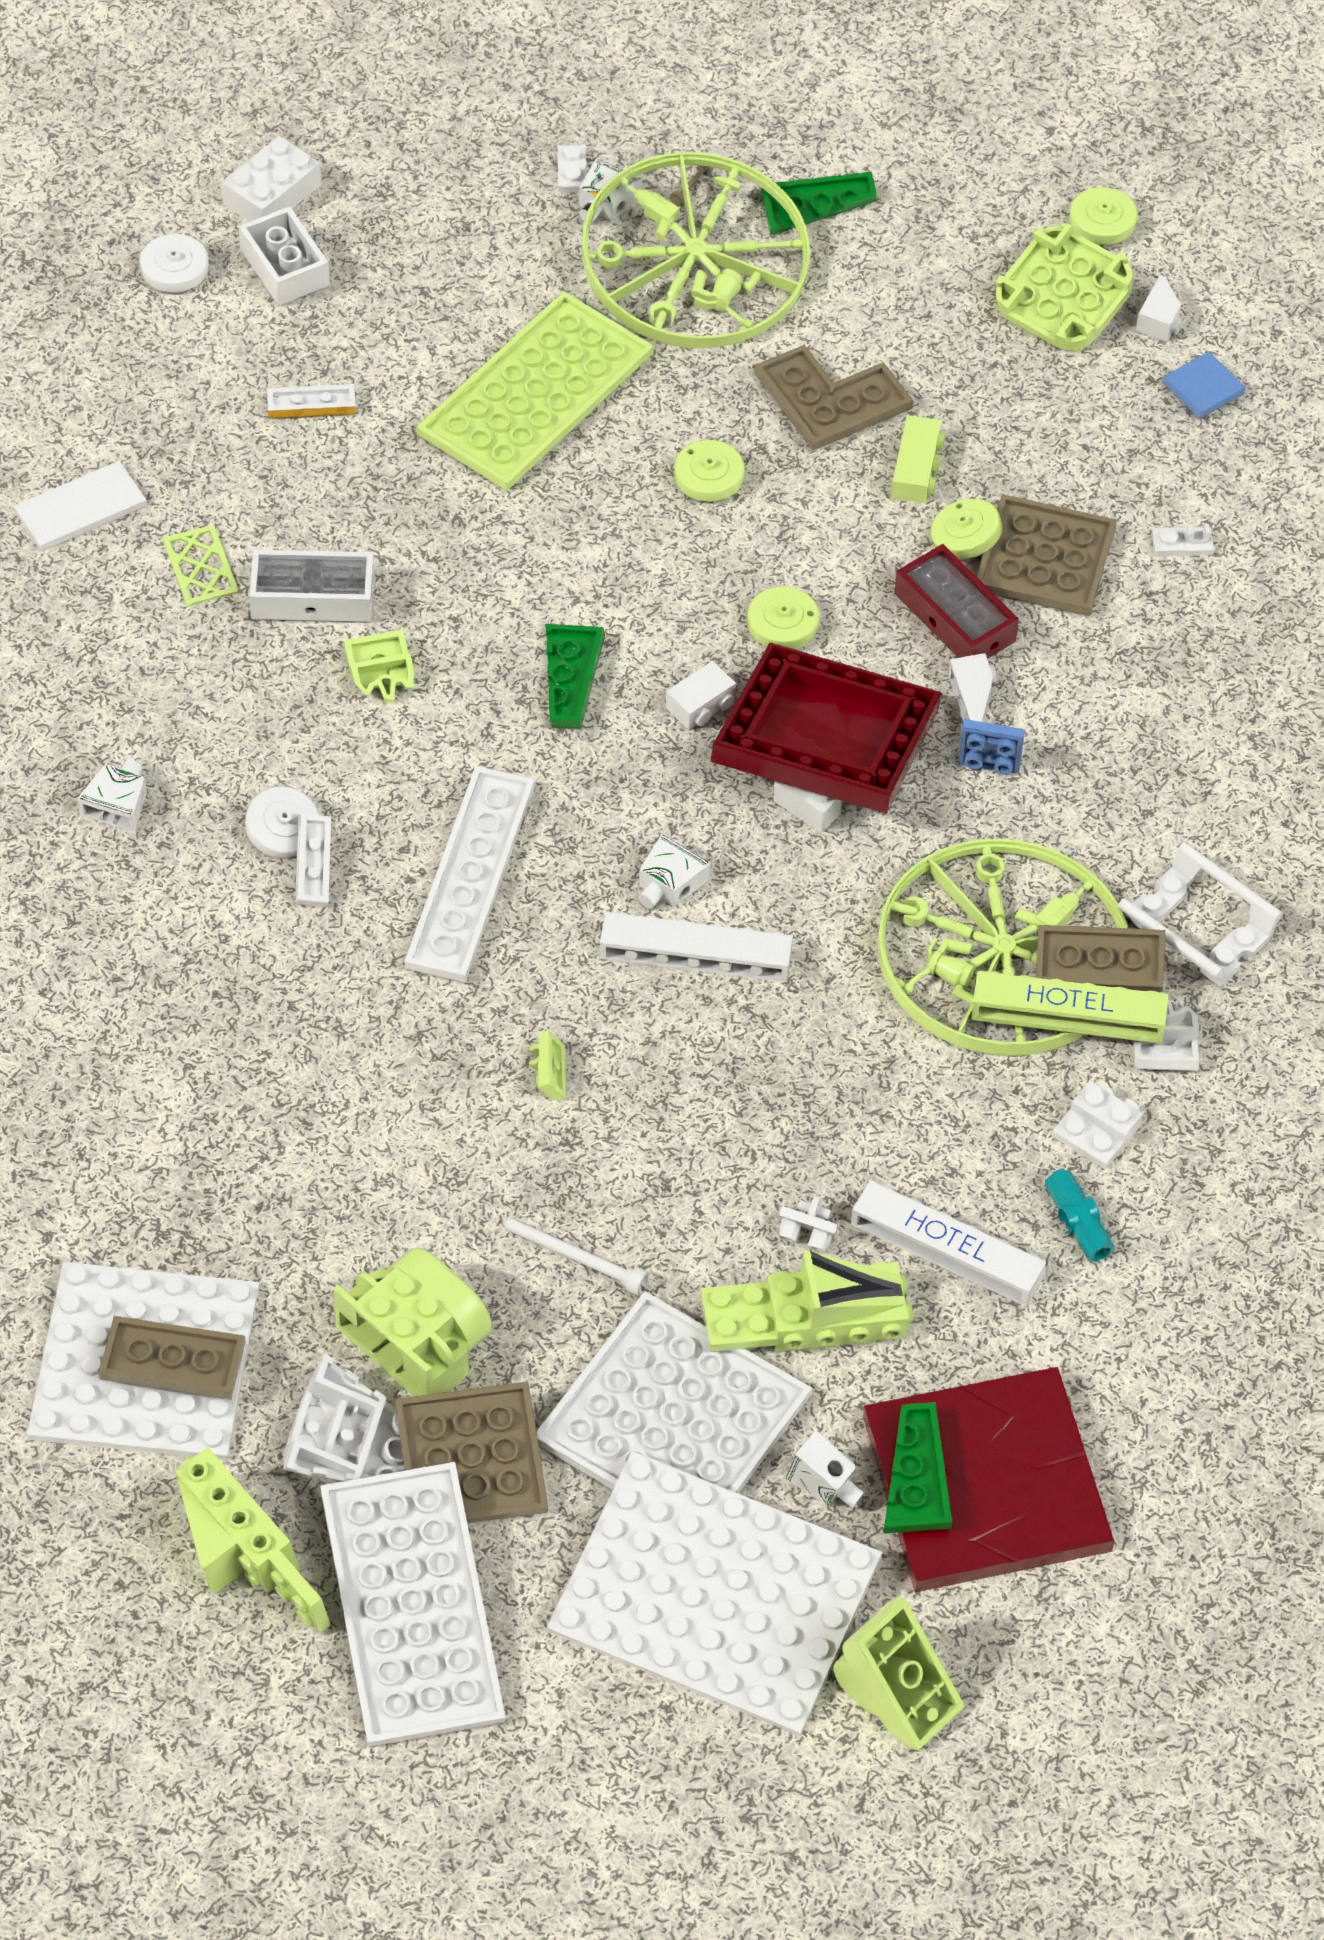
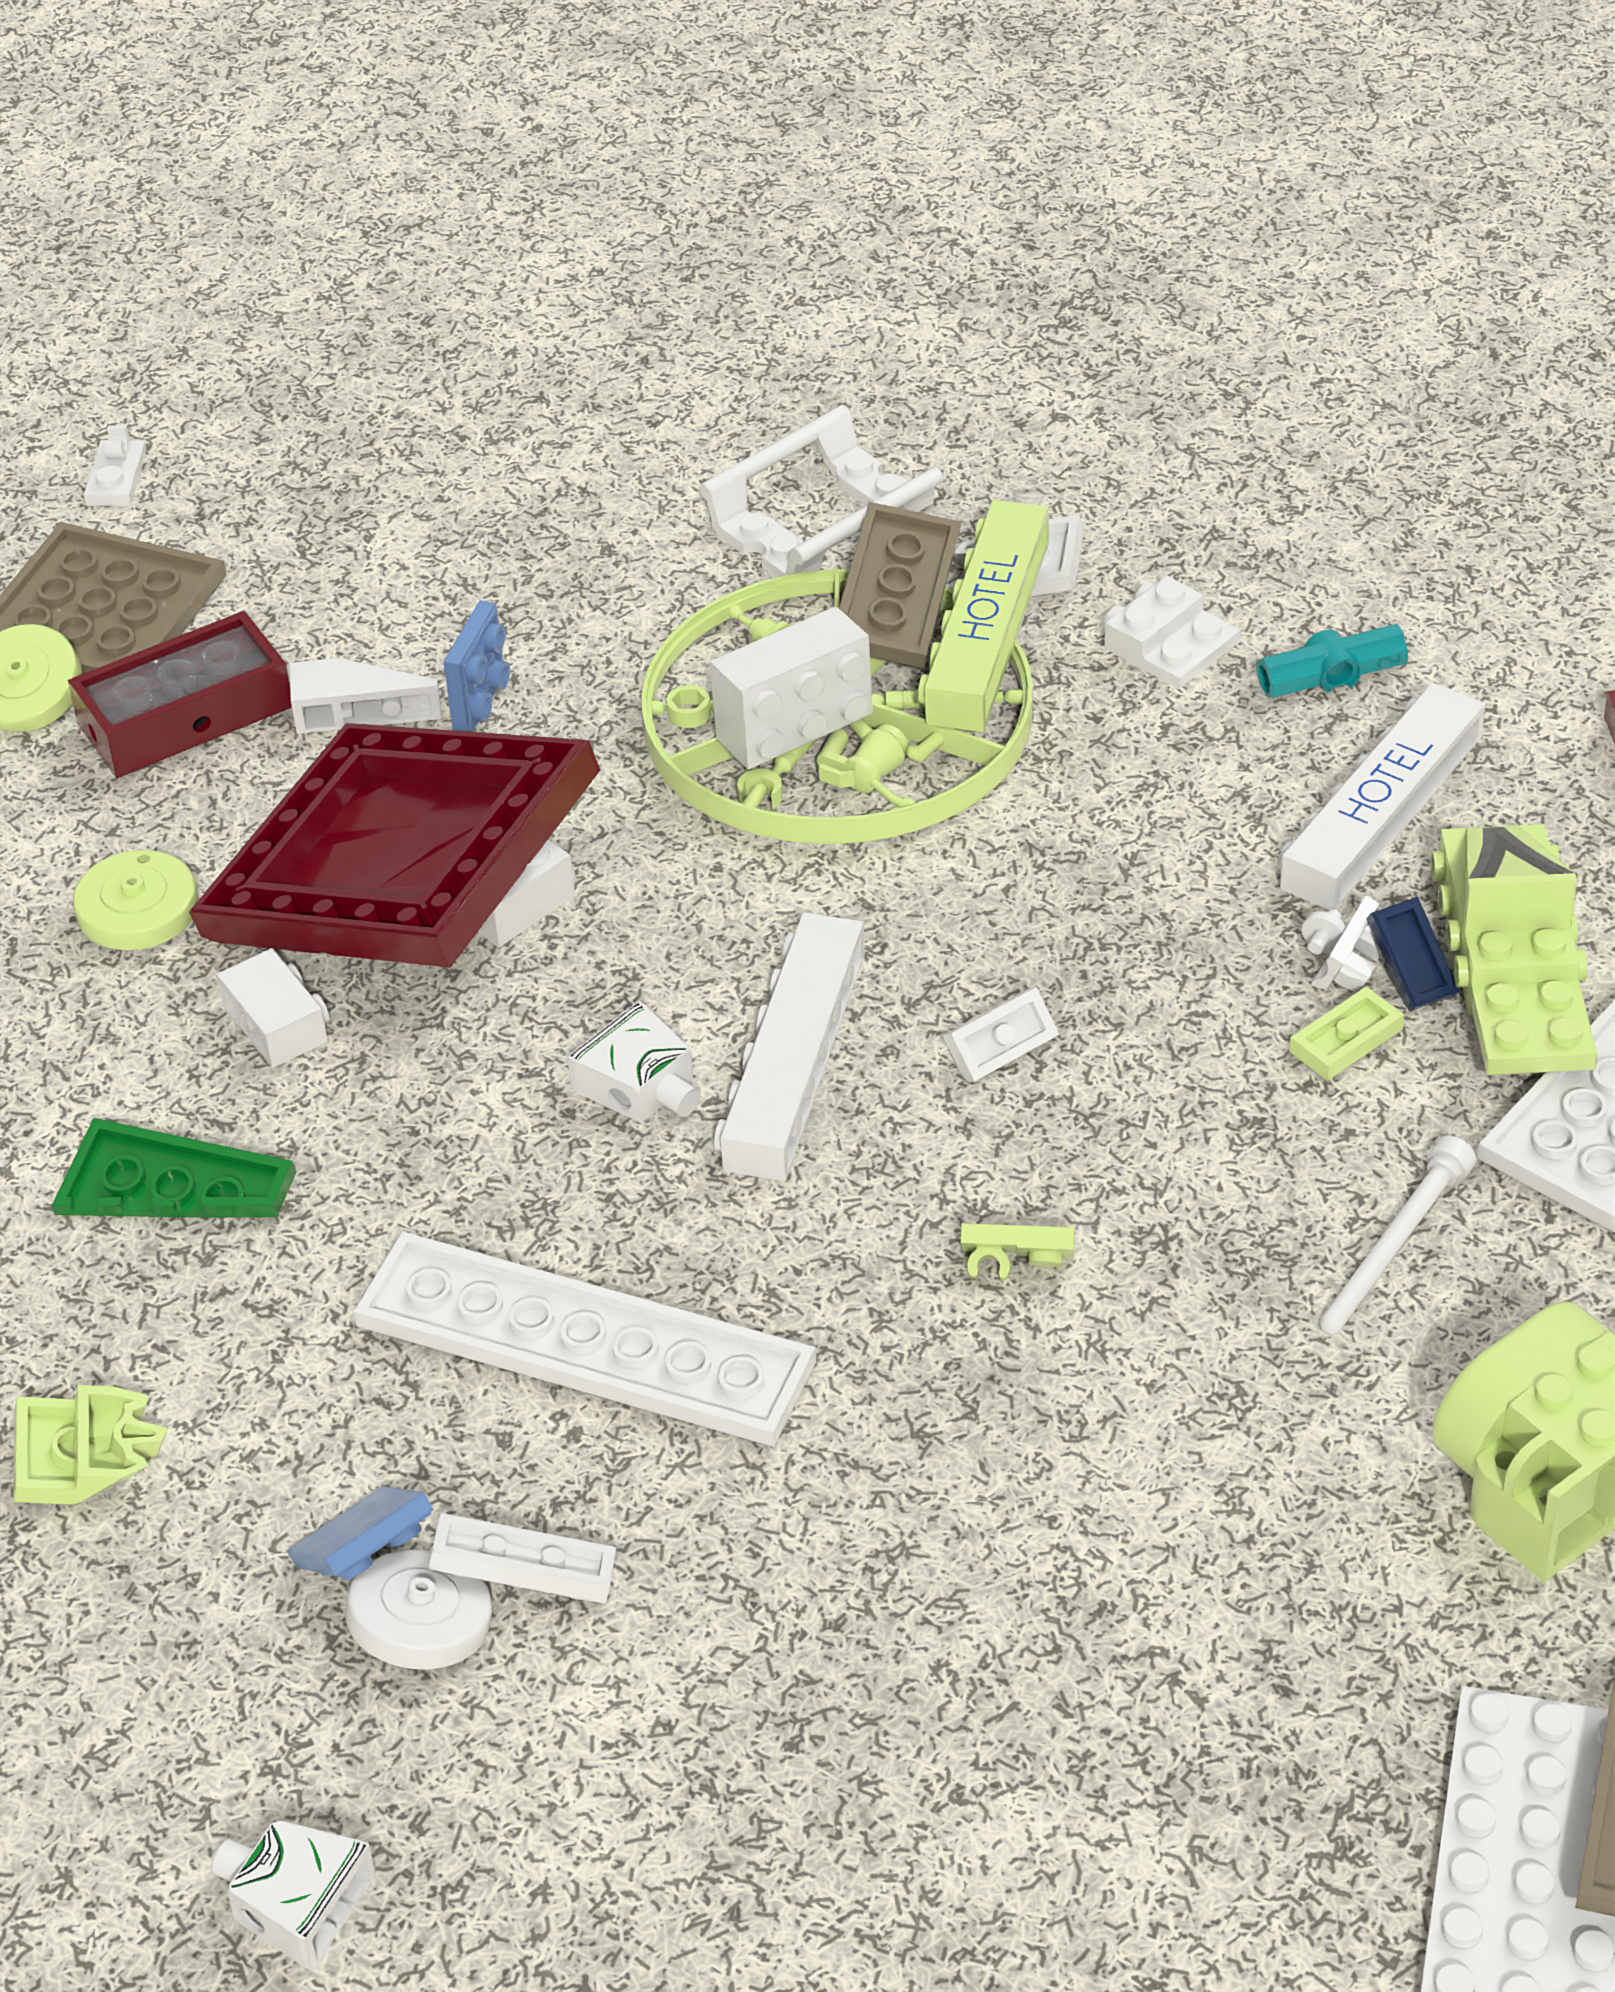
camera: 80 degrees left, 10 degrees down
(322, 787) = (350, 1538): none -> medium blue tile
(714, 1049) = (1001, 1035): none -> white plate
(736, 1227) = (1346, 1033): none -> yellowish green plate
(790, 1256) = (1412, 954): none -> dark blue tile
(970, 902) = (791, 687): none -> white brick

